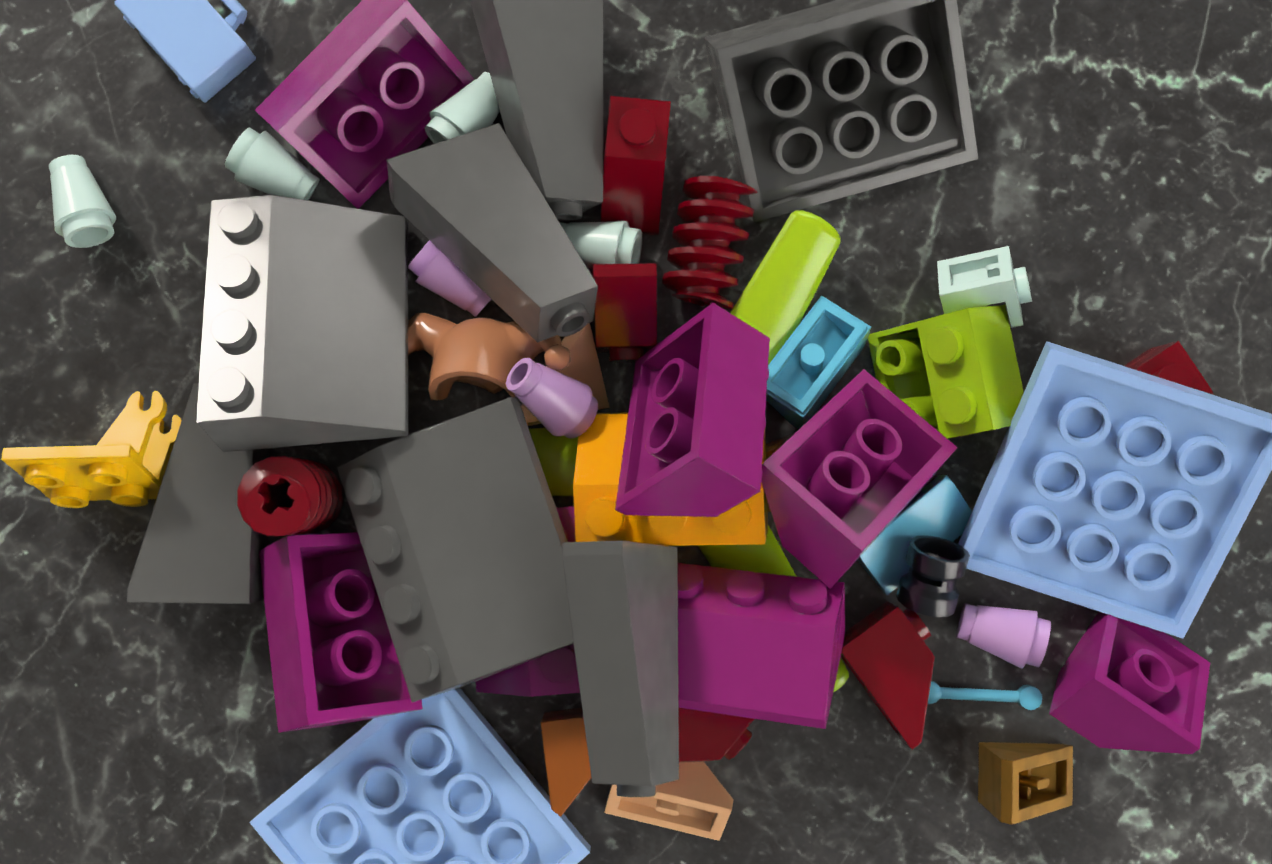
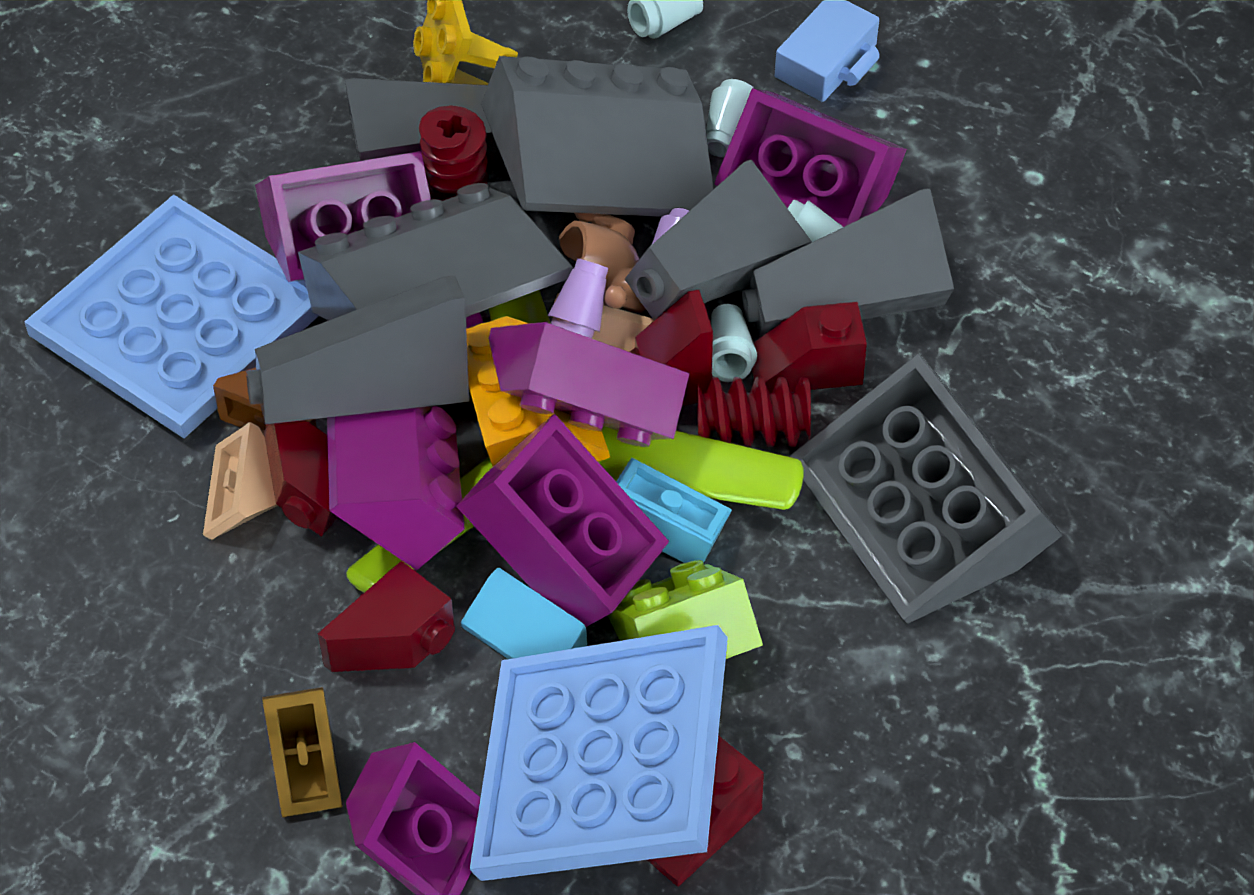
camera: 80 degrees right, 35 degrees down
(932, 576) = (484, 633): black wheel -> none
(982, 281) = (783, 635): light aqua bracket -> none
(1006, 633) = (444, 717): lavender cone -> none
(1026, 696) = (373, 676): medium azure hinge -> none

